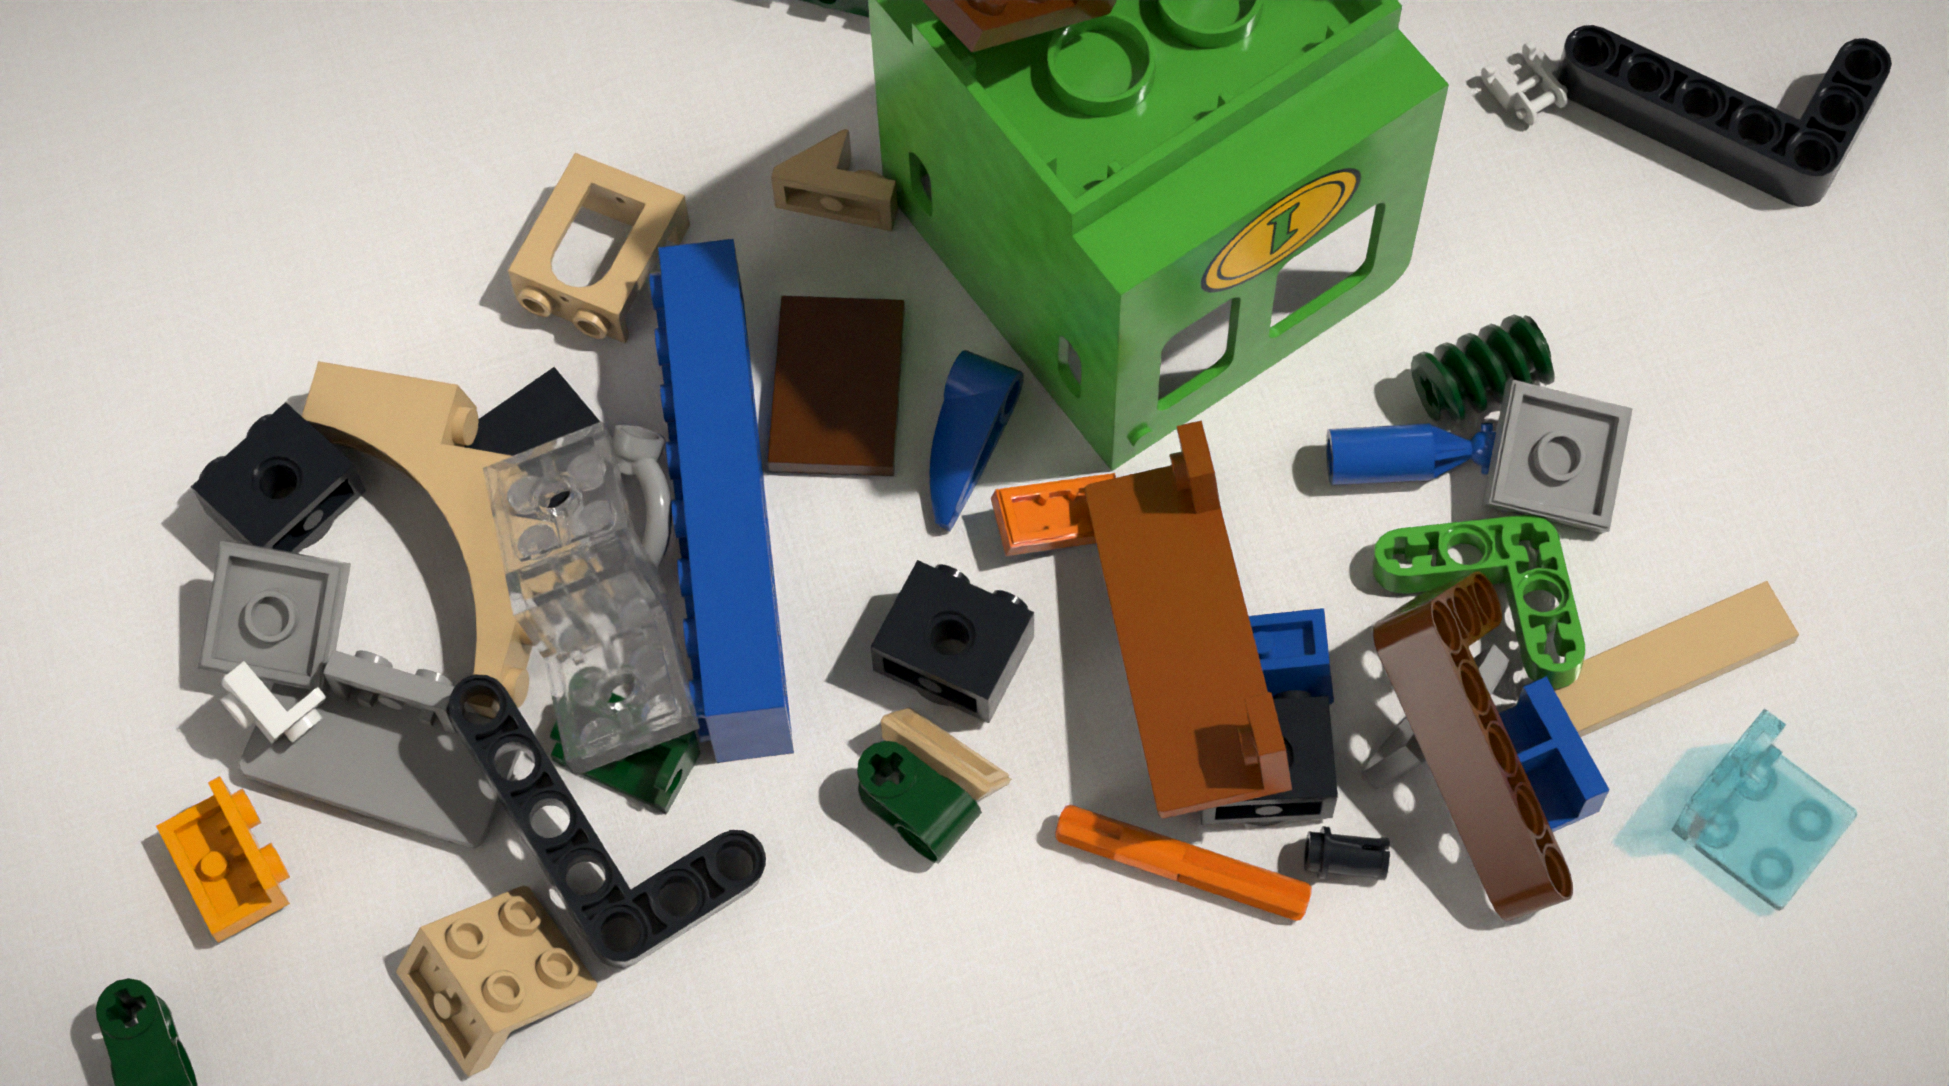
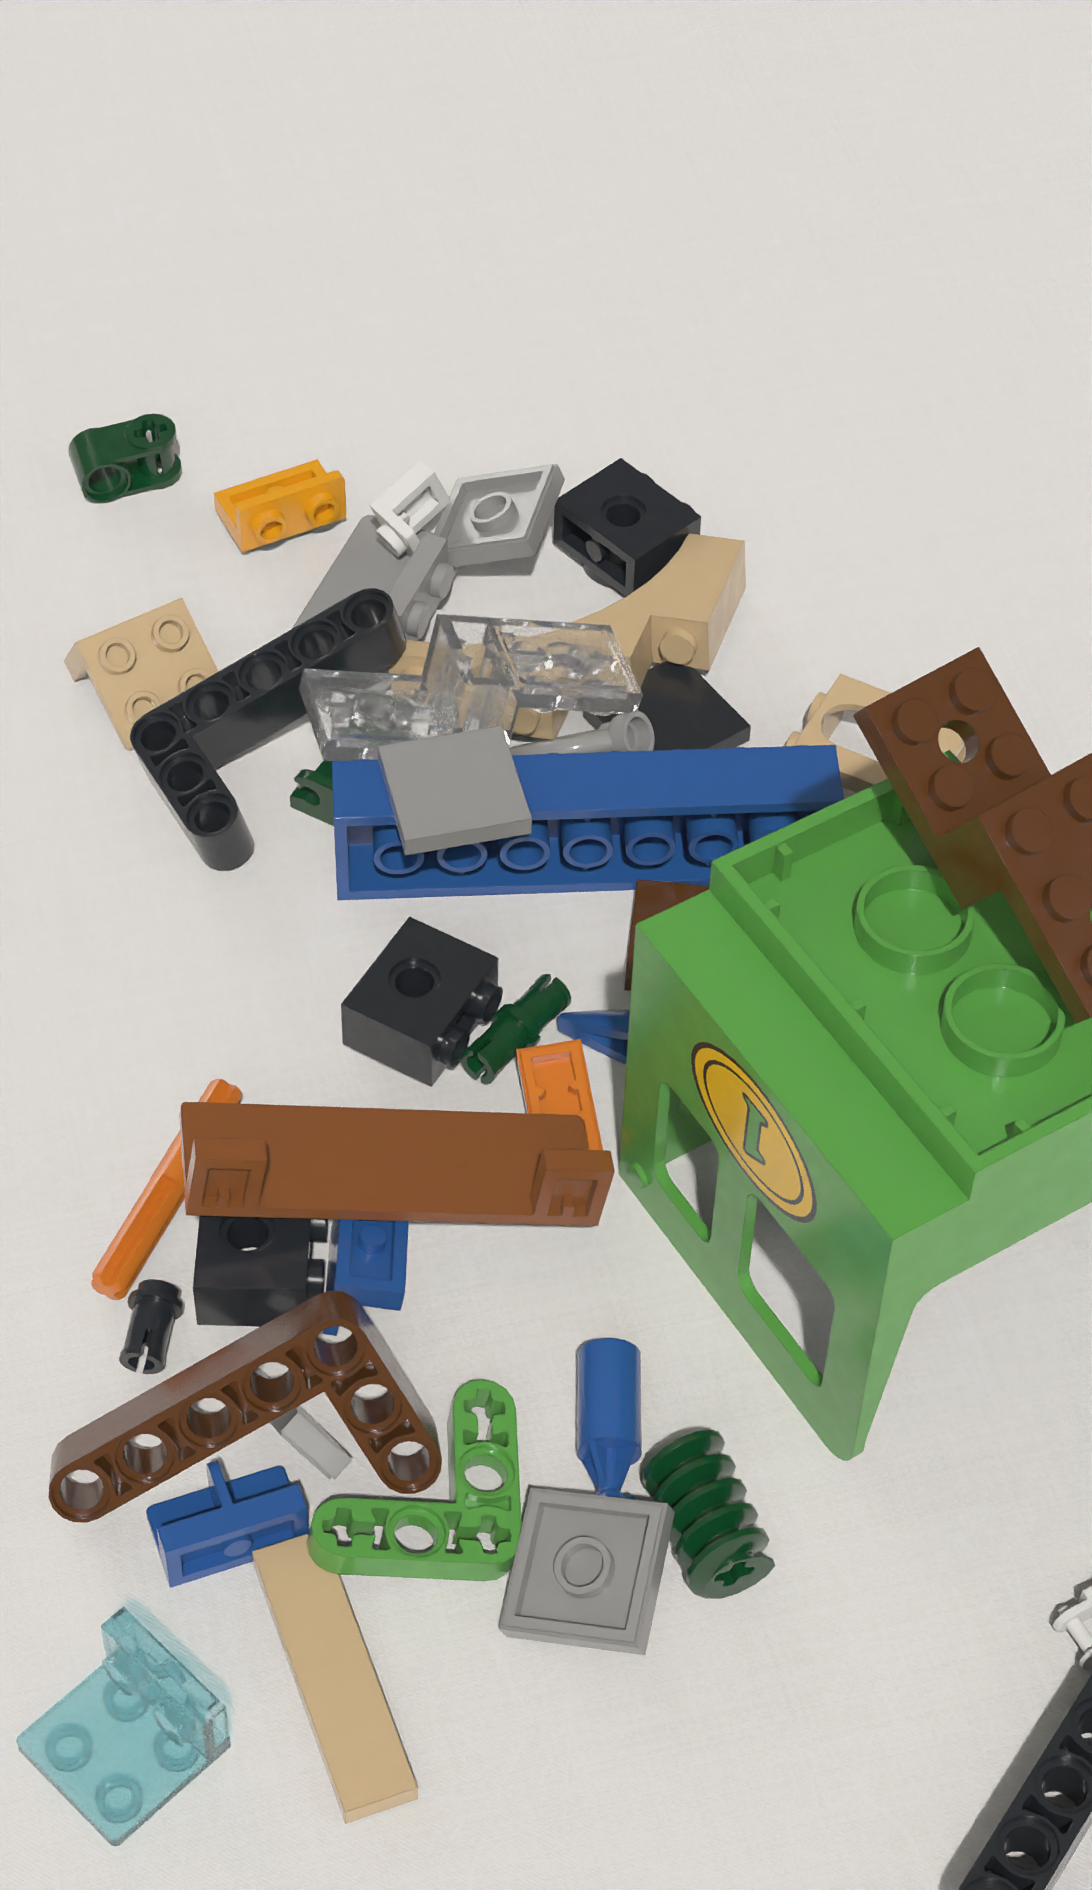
camera: 90 degrees right, 15 degrees down
(751, 587) = (454, 790): none -> light grey tile
(924, 806) = (259, 974): dark green piece -> none
(944, 753) = (308, 998): tan tile -> none
(966, 555) = (515, 1028): none -> dark green pin

